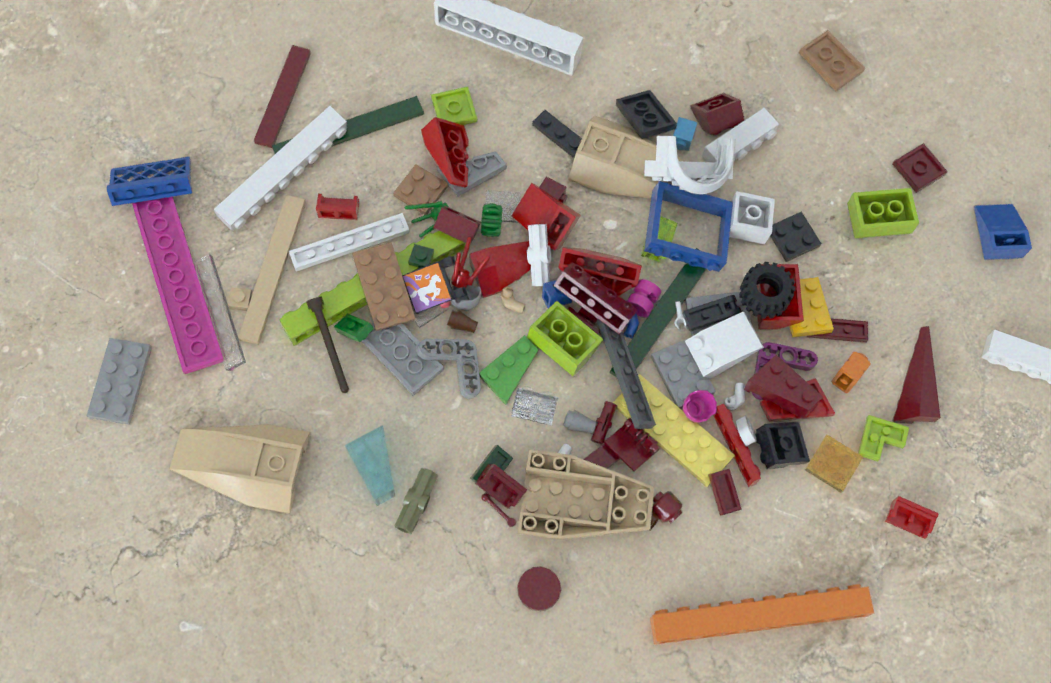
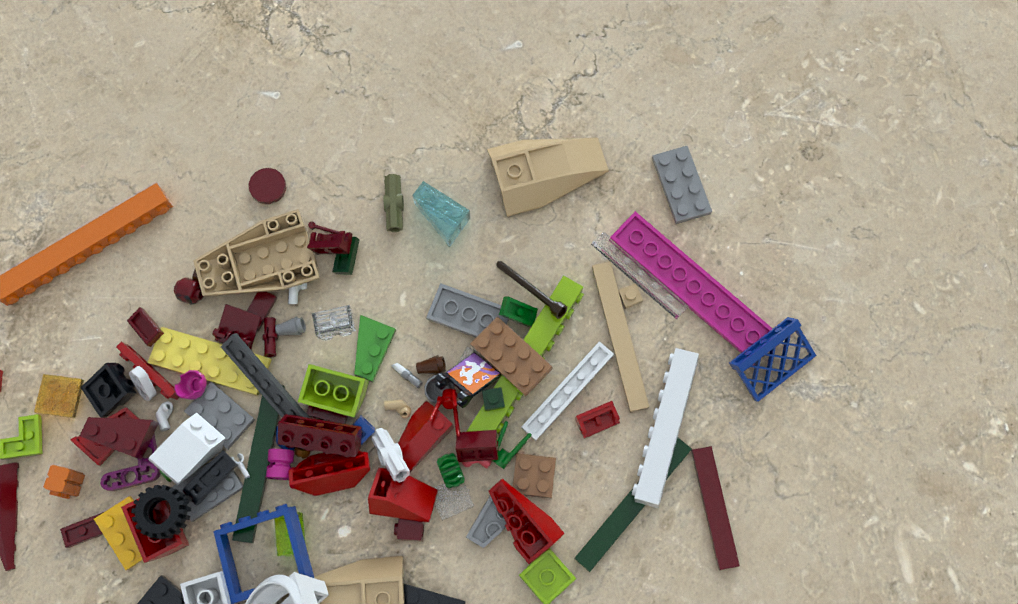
camera: 160 degrees right, 5 degrees up
(461, 357) = (414, 333): light grey beam -> none
(489, 327) = (407, 375): none -> light grey piece

